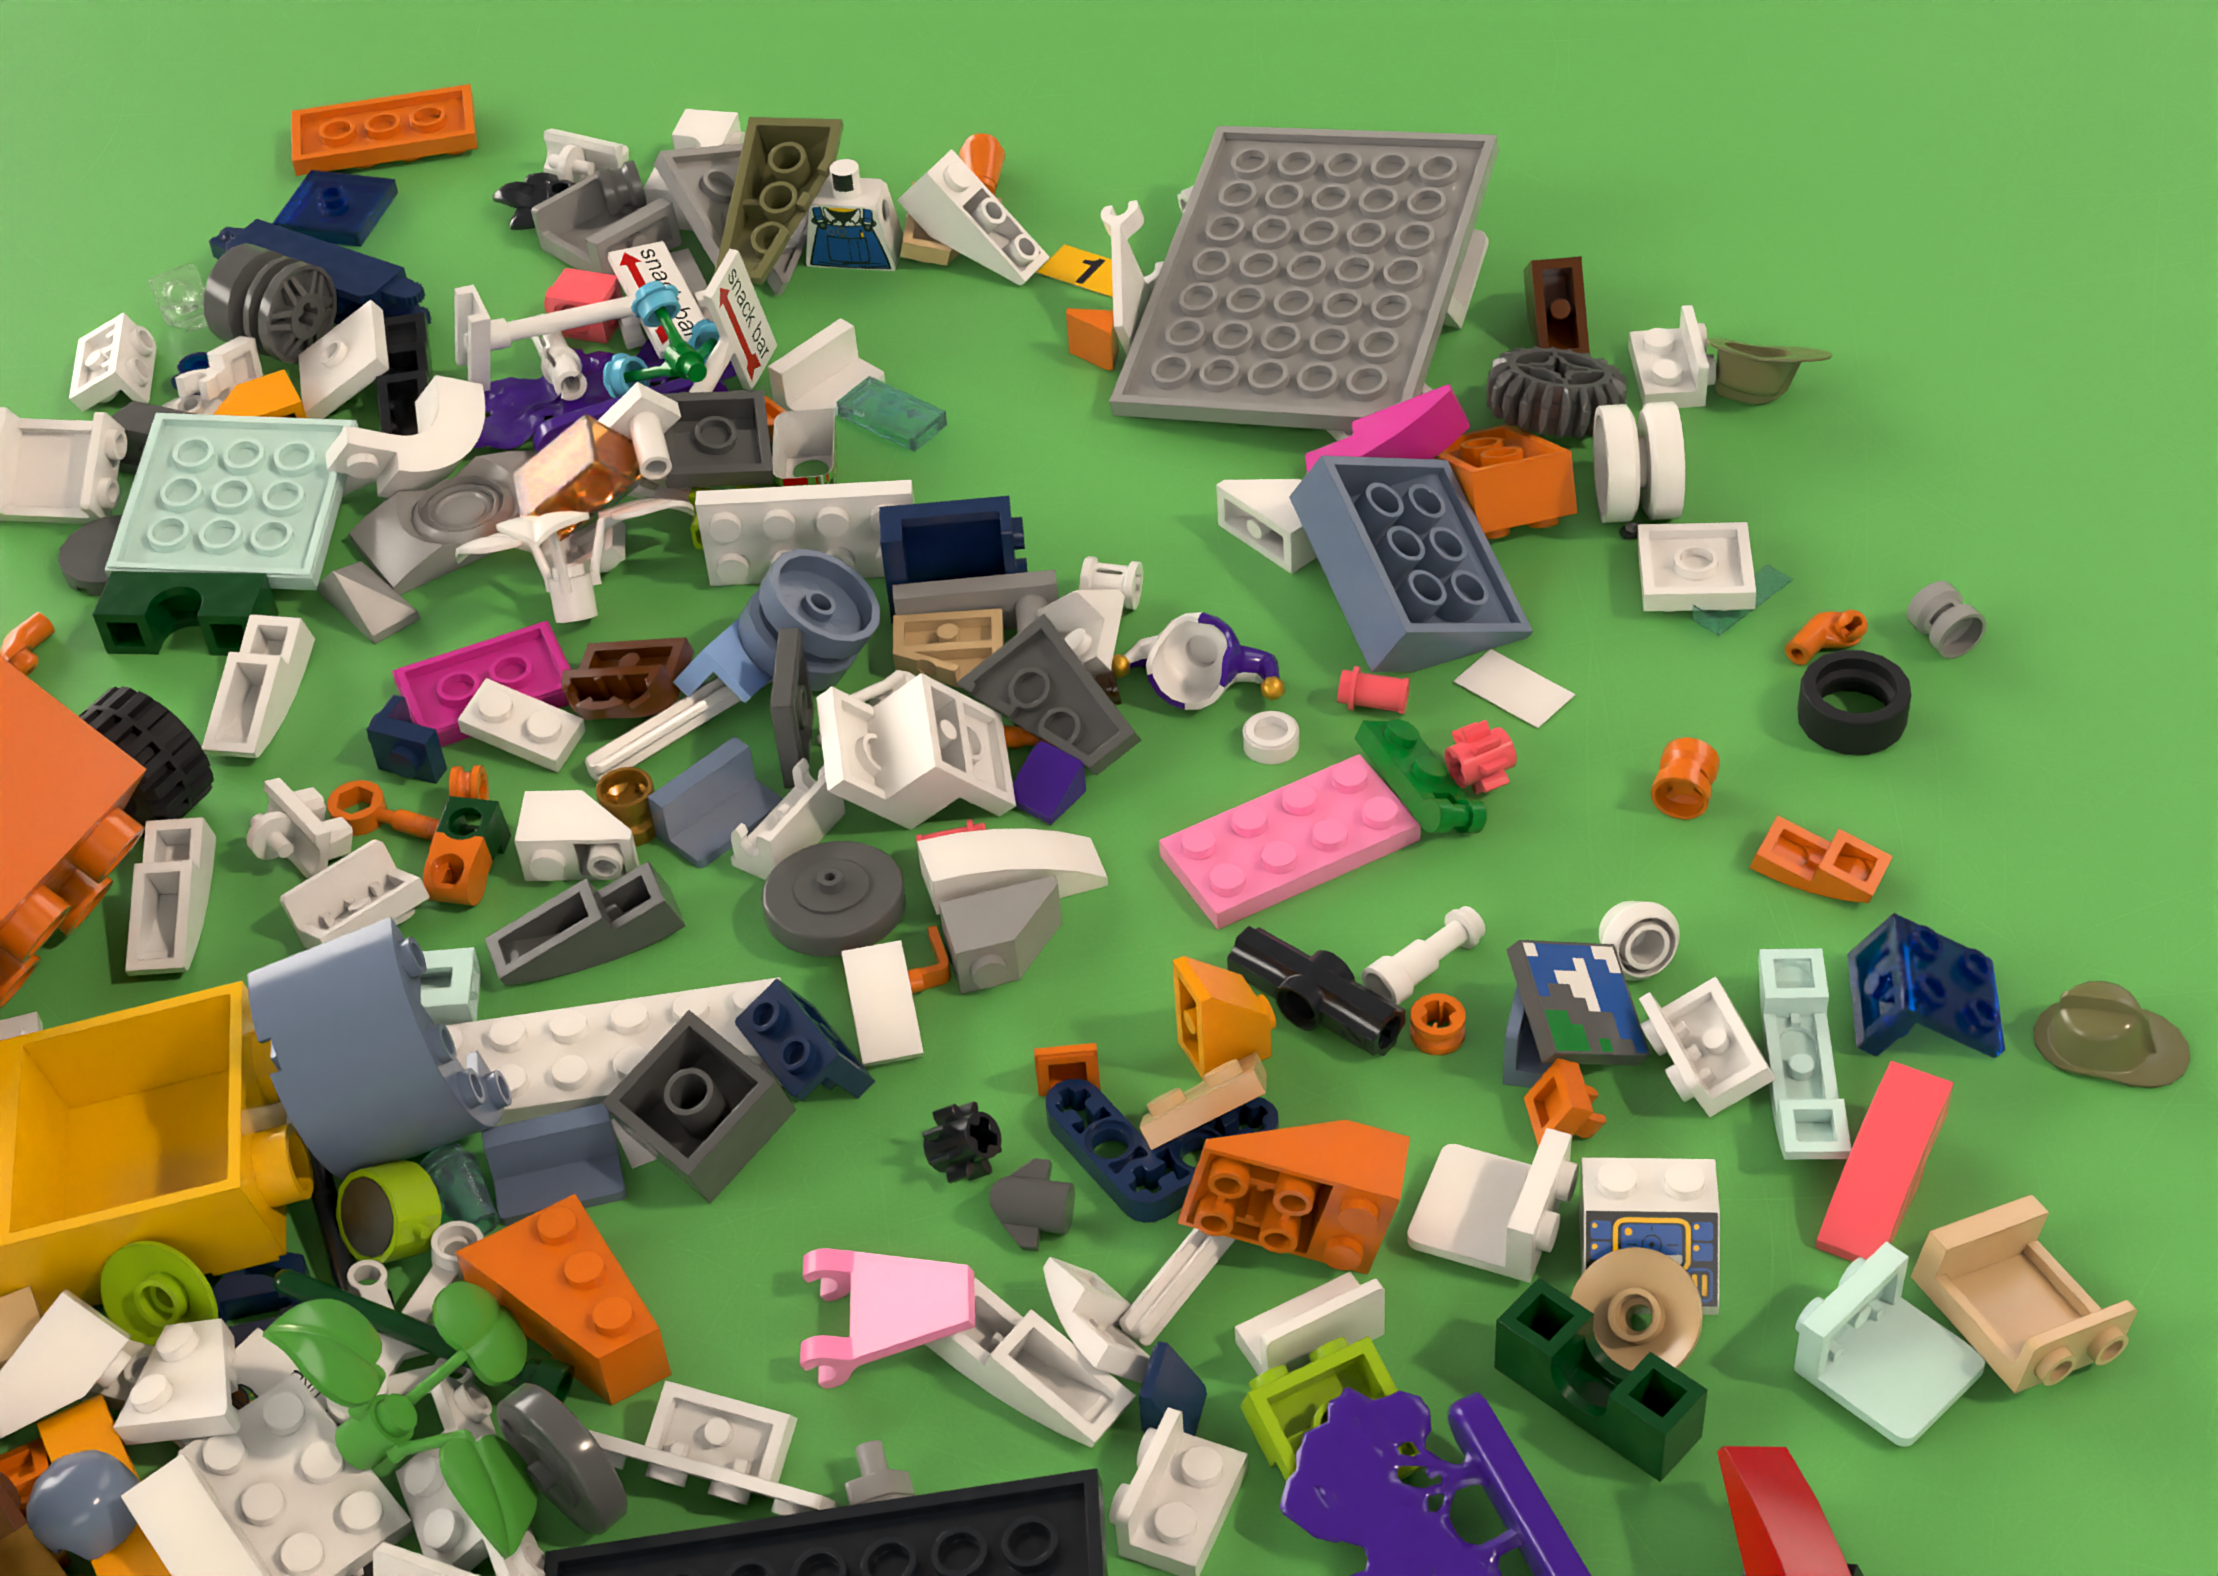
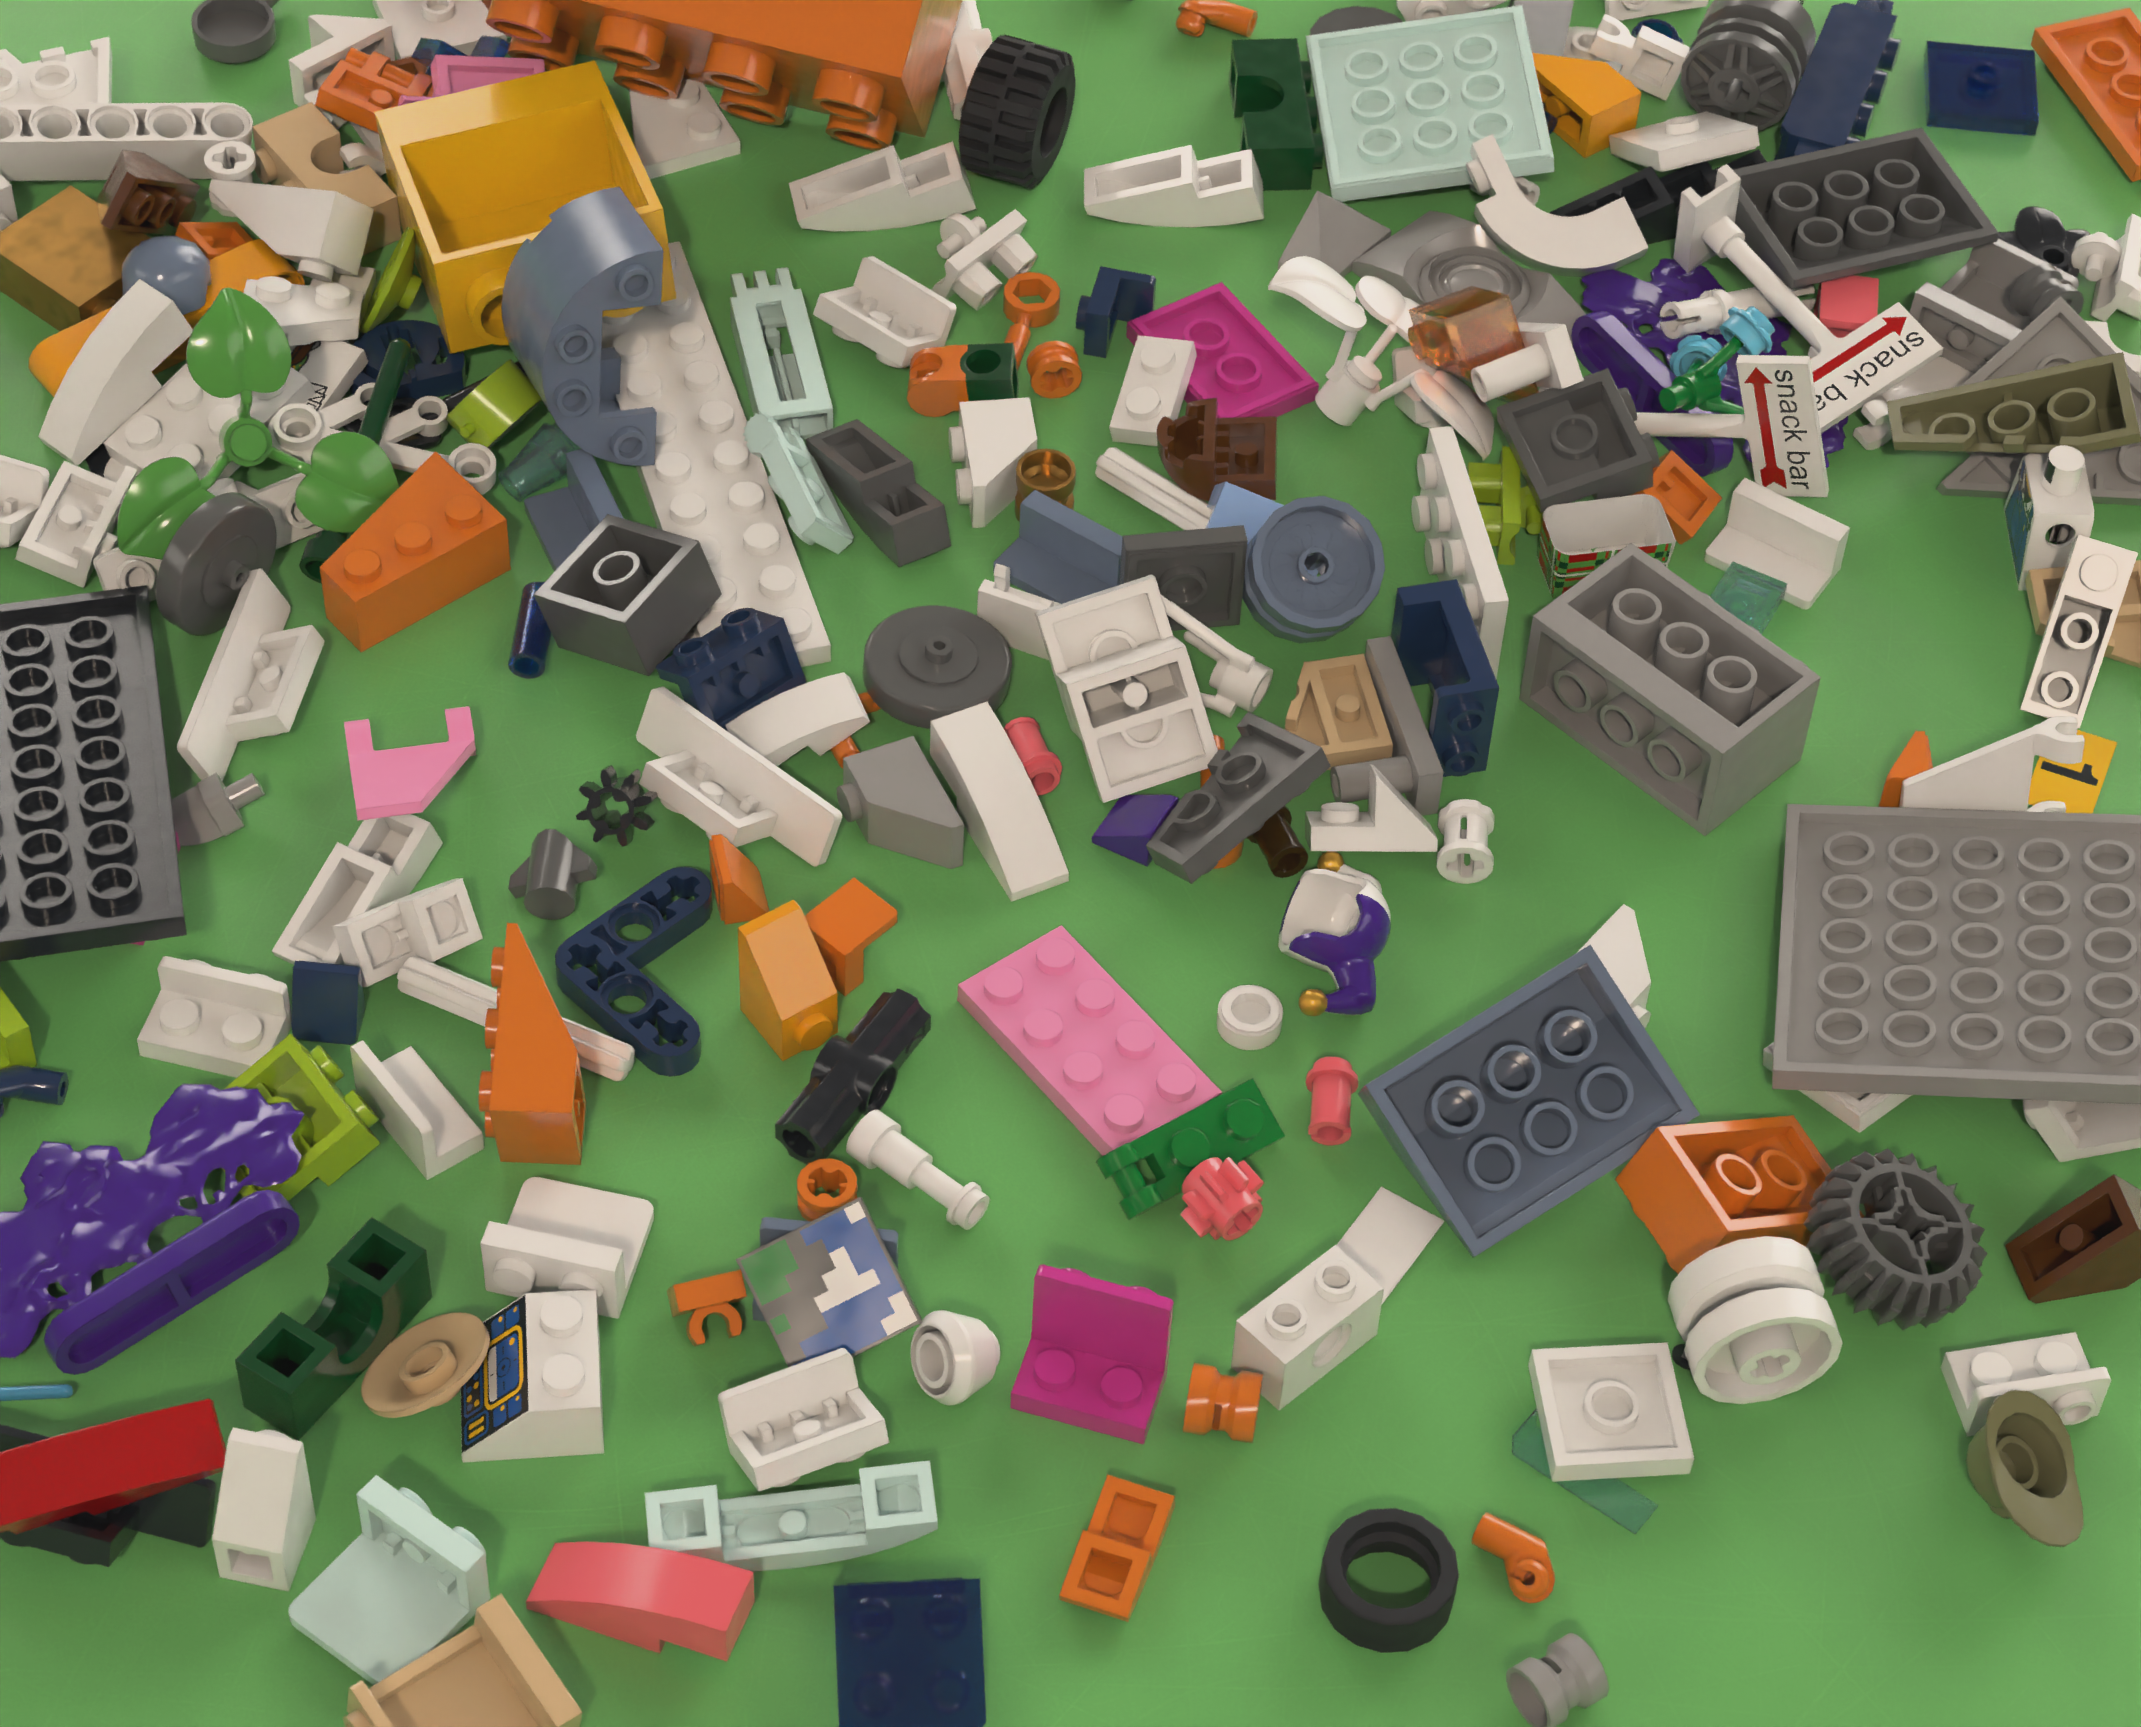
camera: 75 degrees right, 5 degrees up
(499, 245) = (1857, 209): none -> dark grey slope
(557, 986) = (799, 483): none -> light aqua hinge
(694, 1212) = (530, 637): none -> axle
(944, 1060) = (728, 784): none -> white bracket
(996, 424) = (1668, 688): none -> light grey brick
(1143, 980) = (845, 927): none -> orange panel
(1221, 1092) = (686, 995): tan wing -> none
(1406, 430) = (1724, 1060): dark pink slope -> none
(1615, 717) = (1308, 1326): none -> white brick
(1640, 852) = (1094, 1354): none -> dark pink bracket
(1821, 1430) = (263, 1509): none -> white slope

